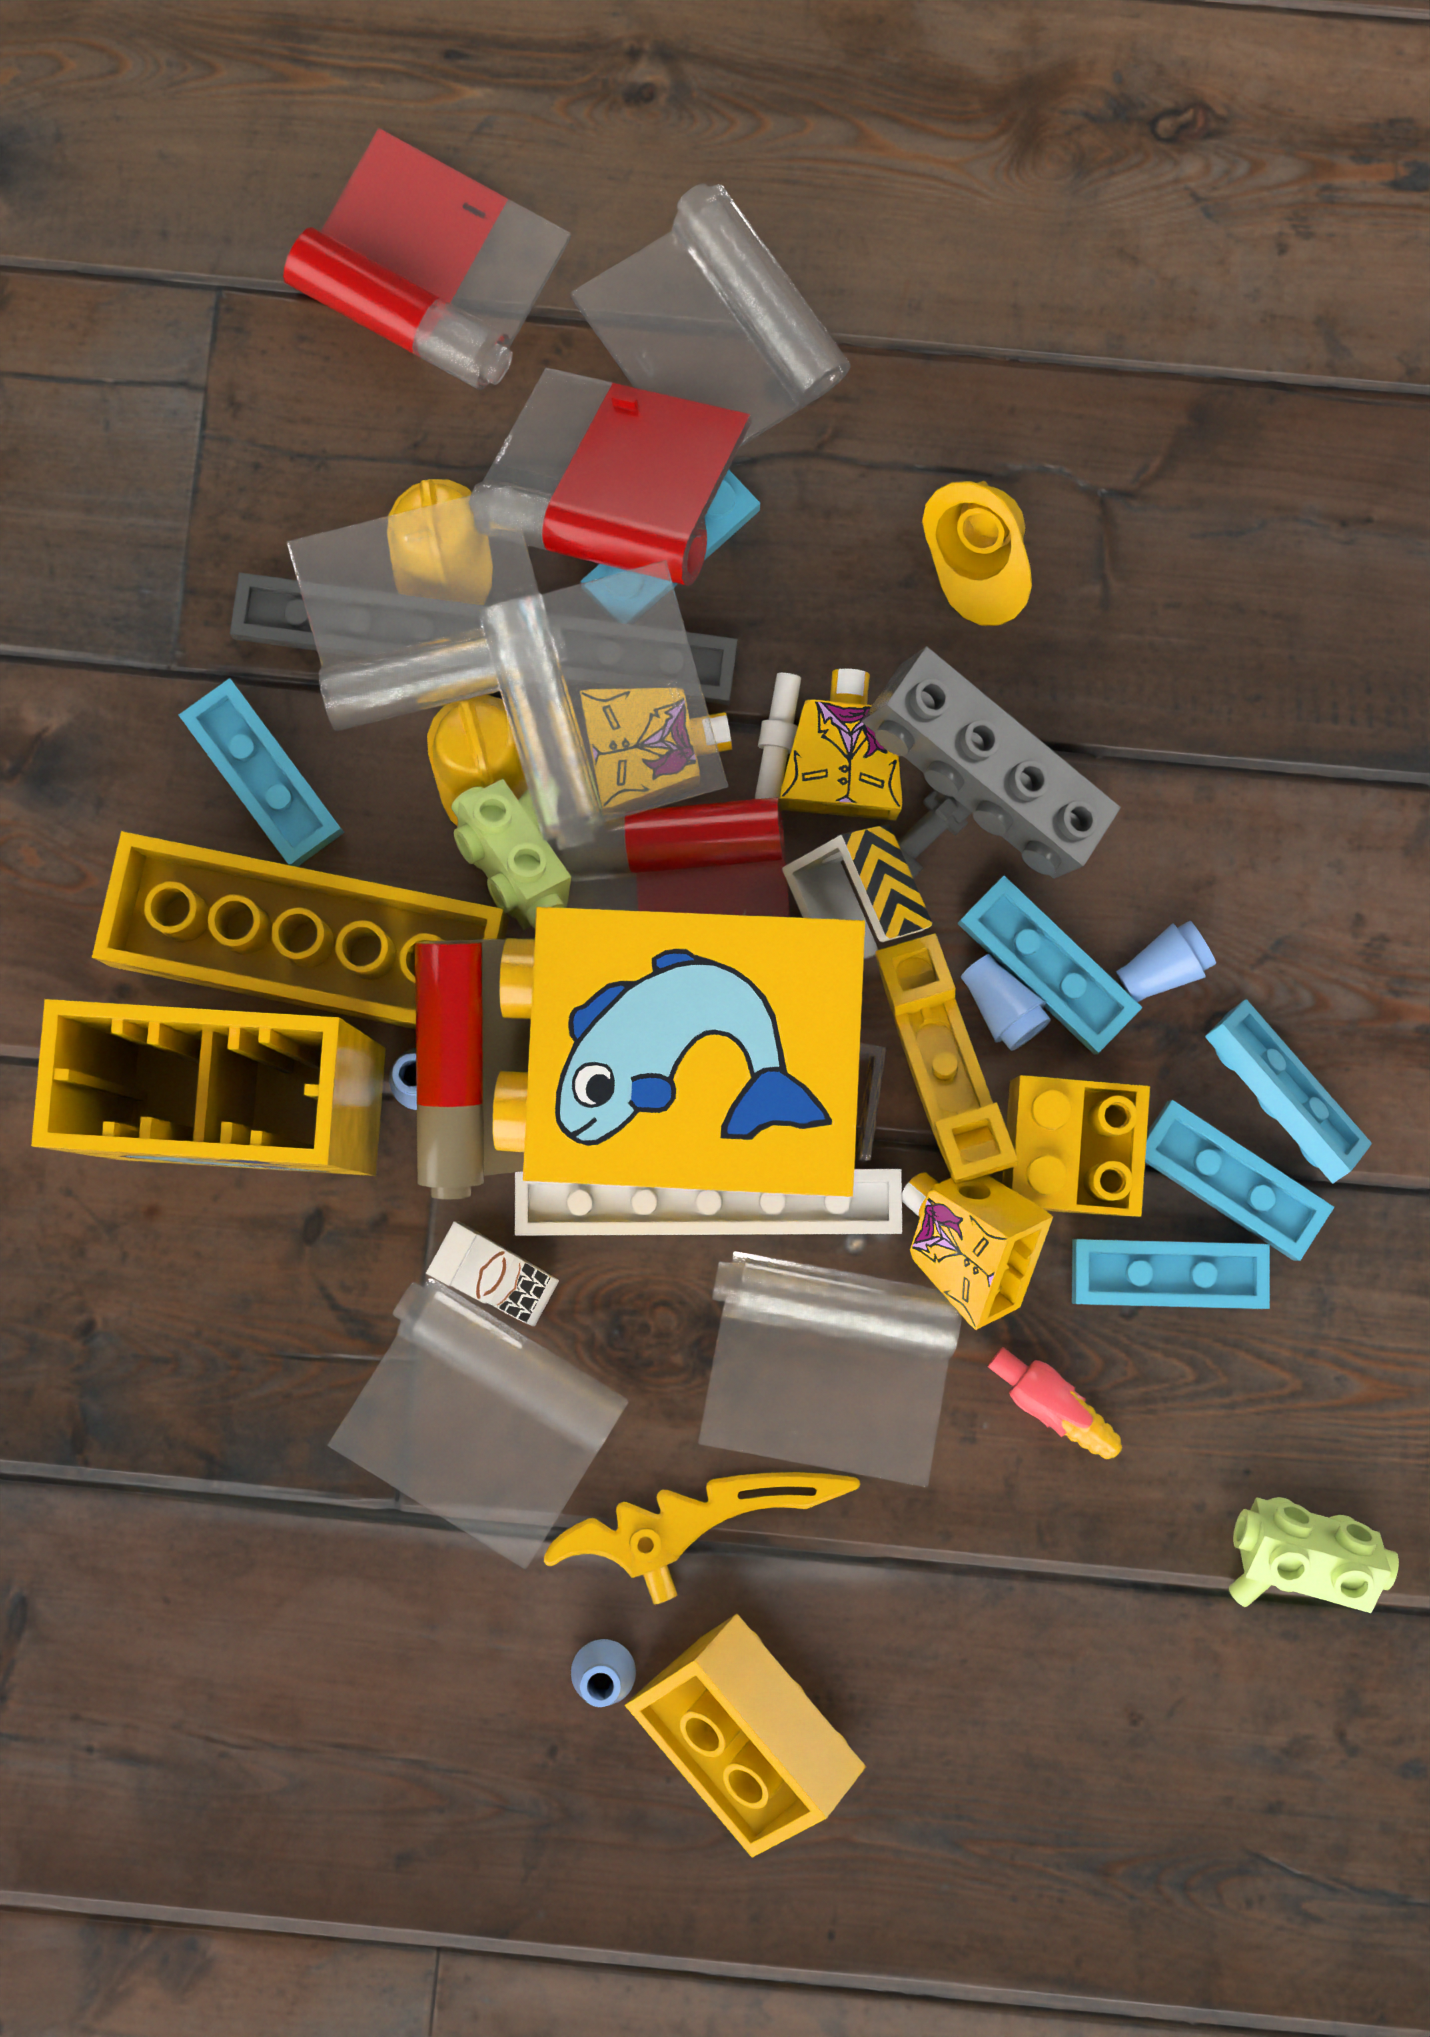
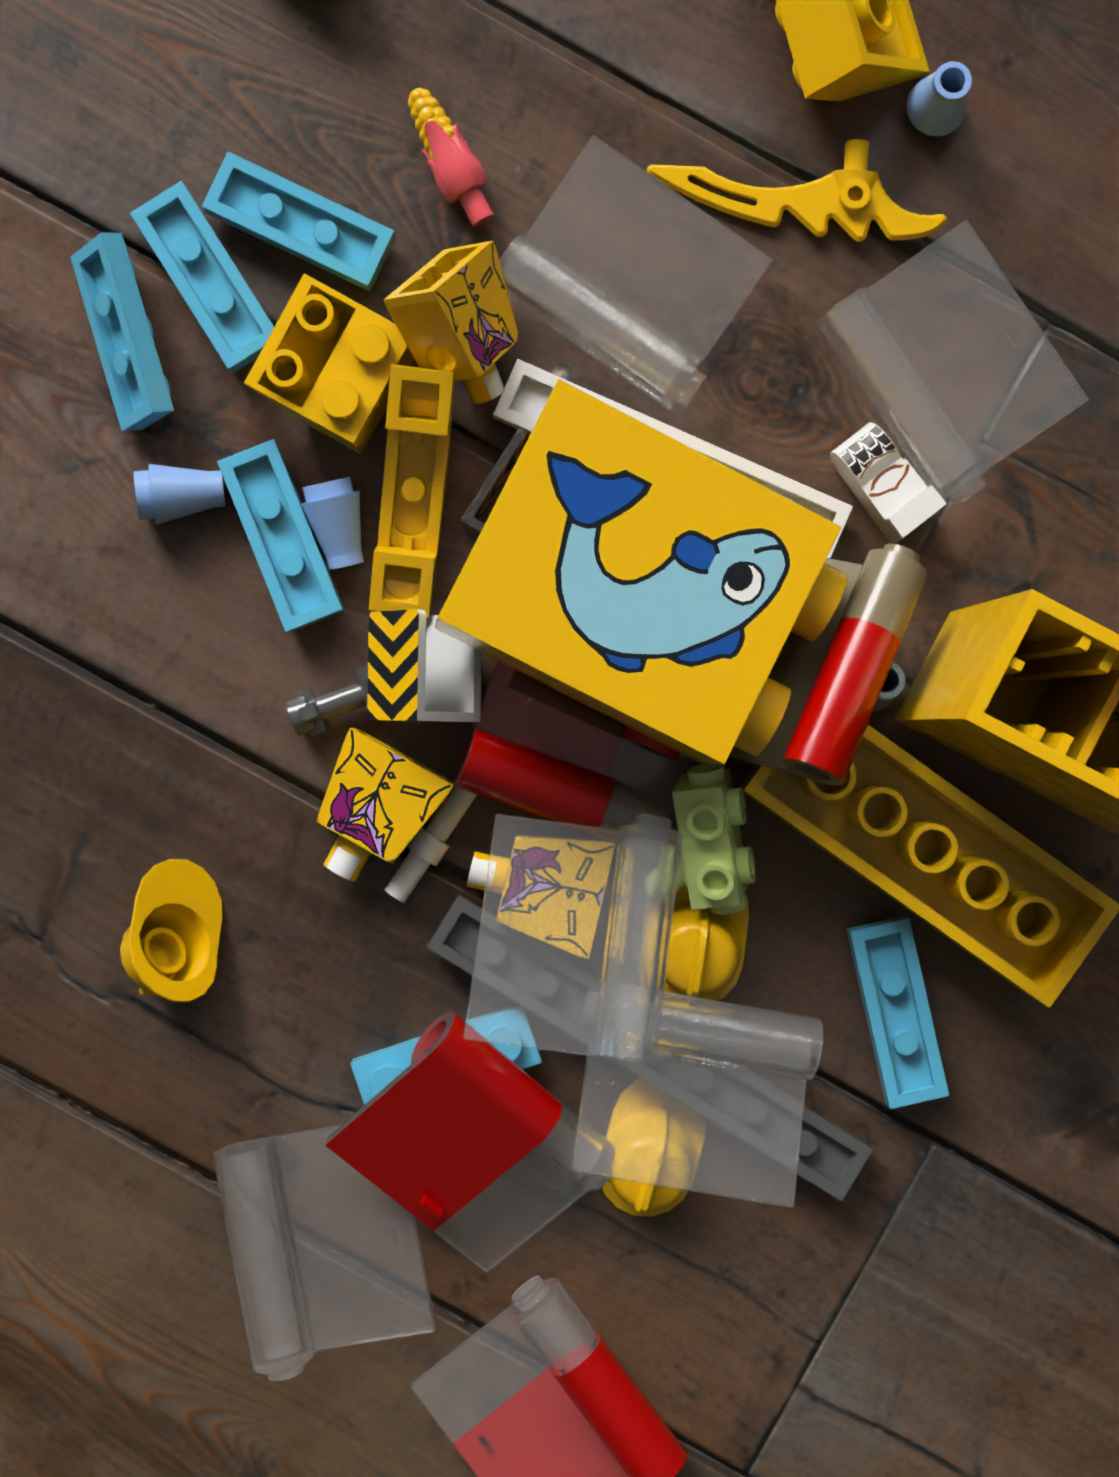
camera: 150 degrees left, 5 degrees up
(990, 765) = (254, 731): brick -> none

